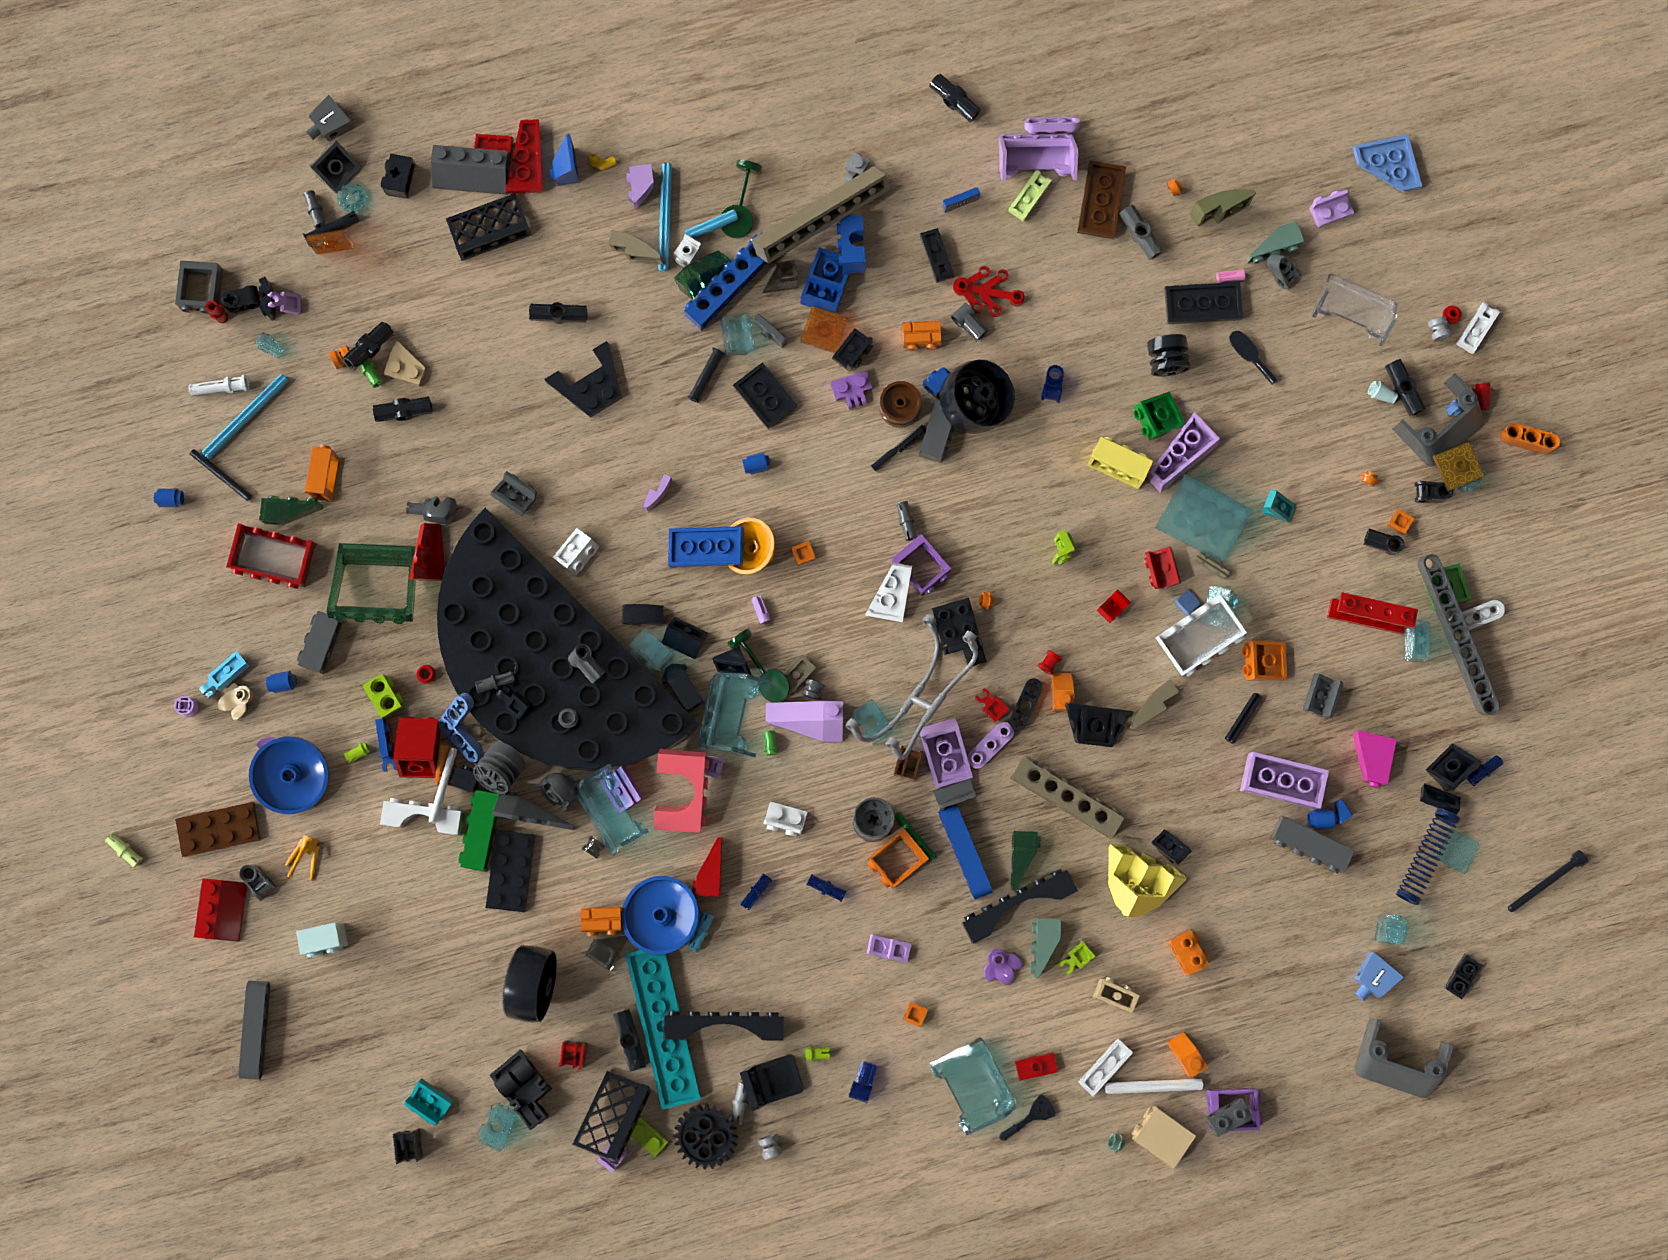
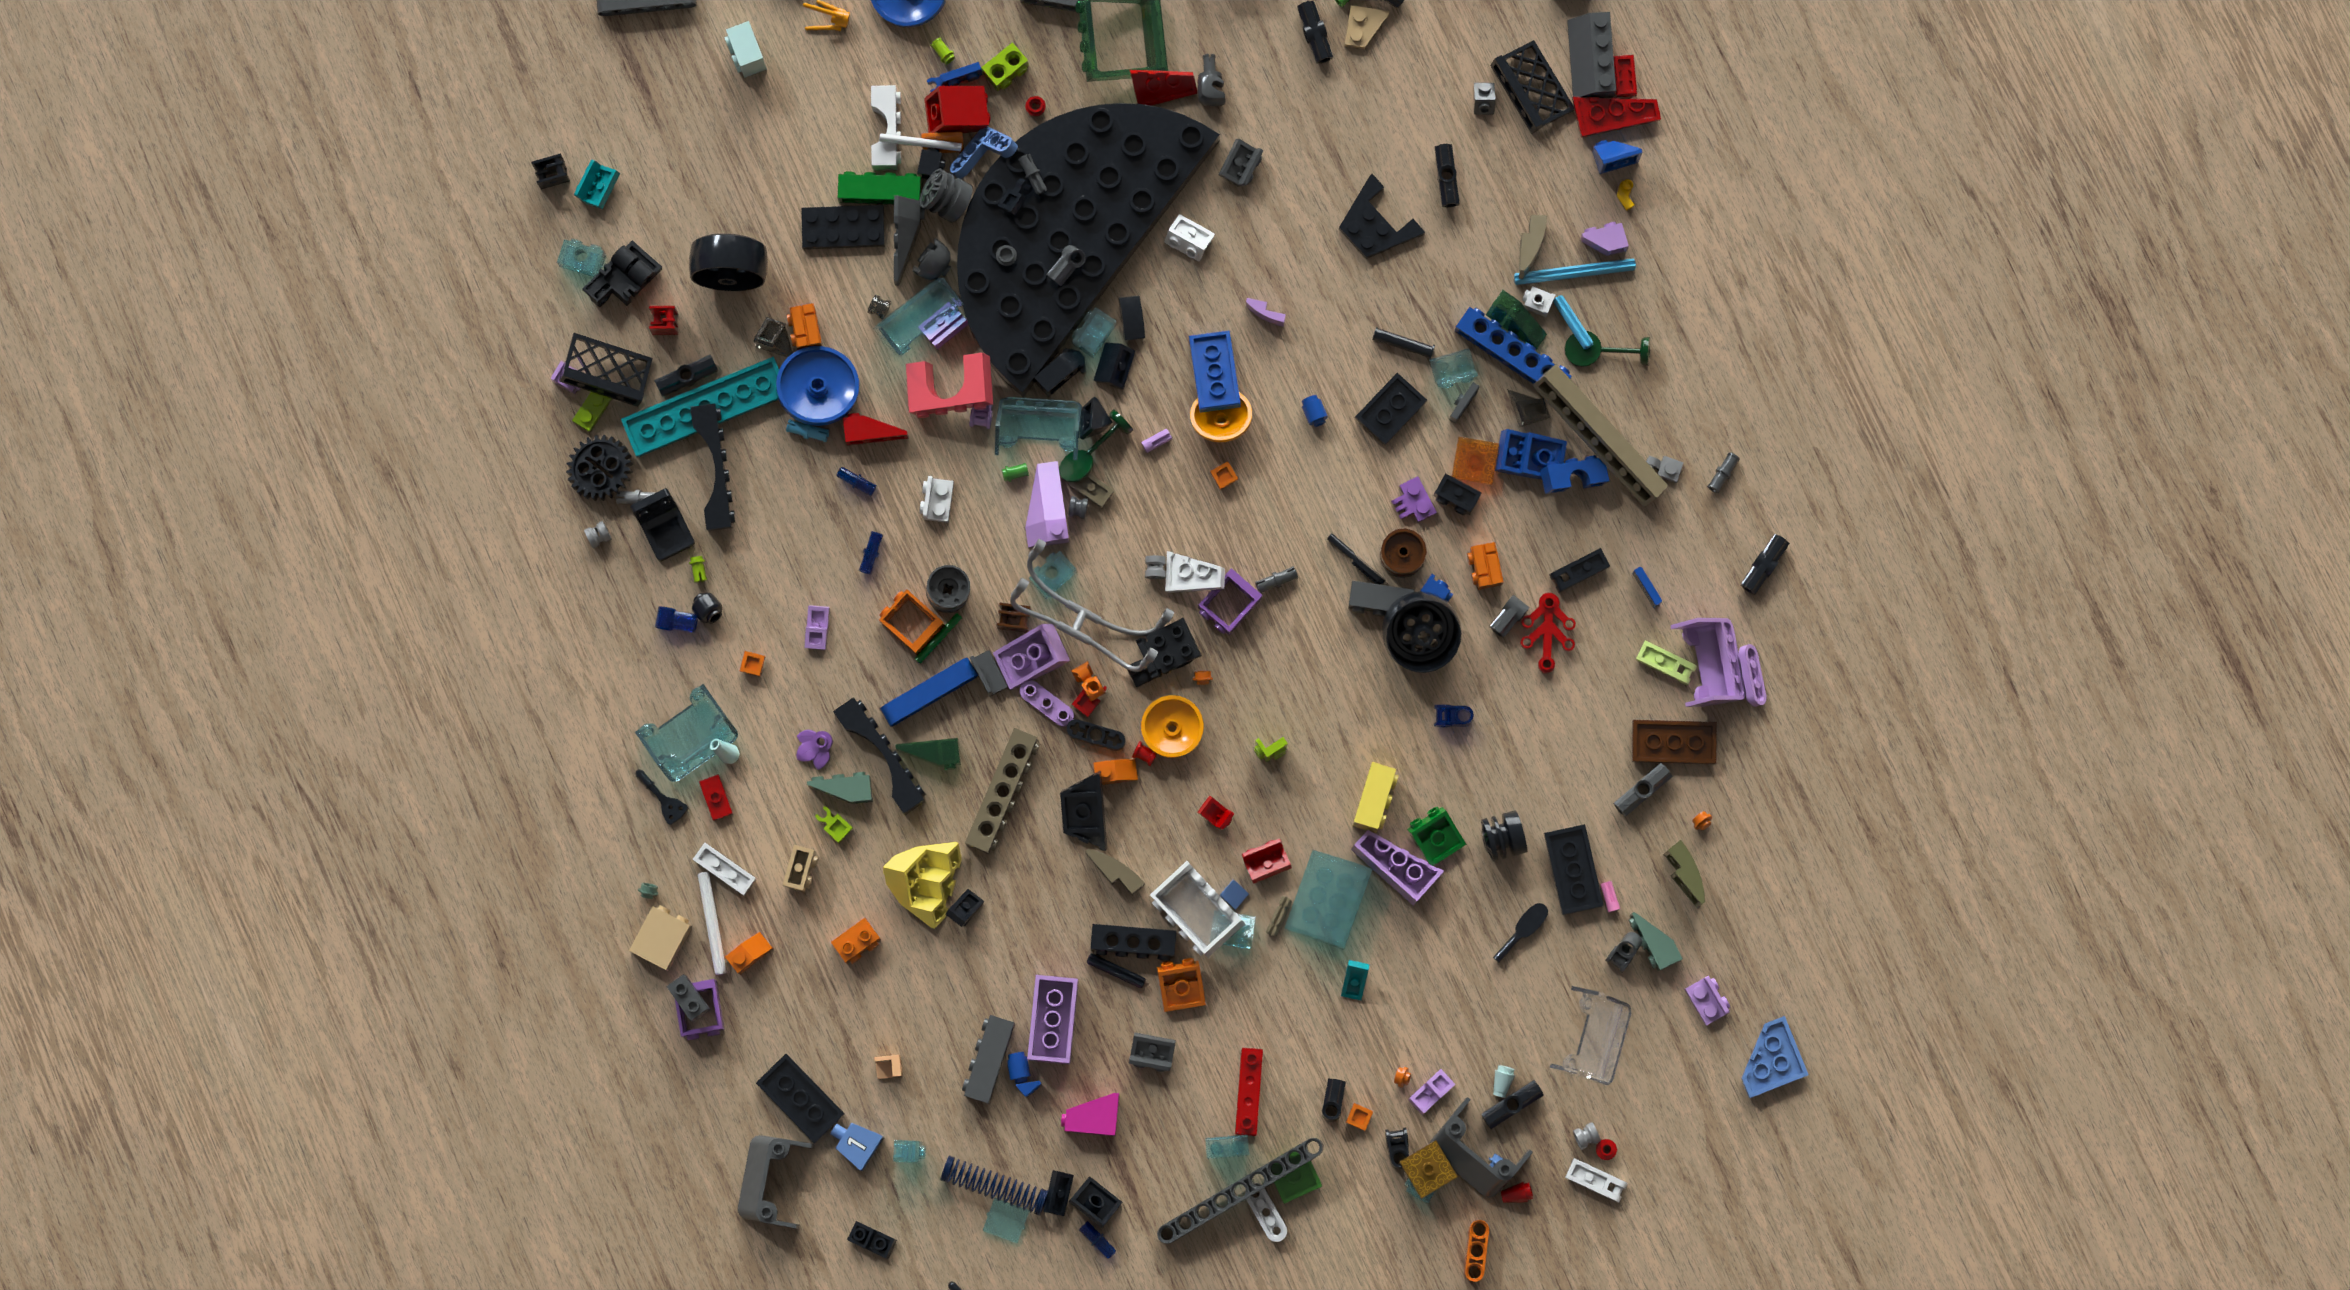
camera: 85 degrees right, 0 degrees up
(491, 269) = (1484, 98): none -> dark grey bracket
(856, 1050) = (707, 608): none -> black head
(867, 119) = (1723, 472): none -> dark grey pin
(883, 629) = (1155, 567): none -> light grey wheel
(983, 700) = (1090, 685): none -> orange leg
(996, 1050) = (725, 751): none -> light aqua cone
(1034, 620) = (1167, 712): none -> light orange dish
(1208, 725) = (1144, 935): none -> black brick
(1307, 938) = (888, 1066): none -> light nougat panel
(1327, 1025) = (800, 1098): none -> black plate
(1384, 457) = (1431, 1091): none -> lavender slope

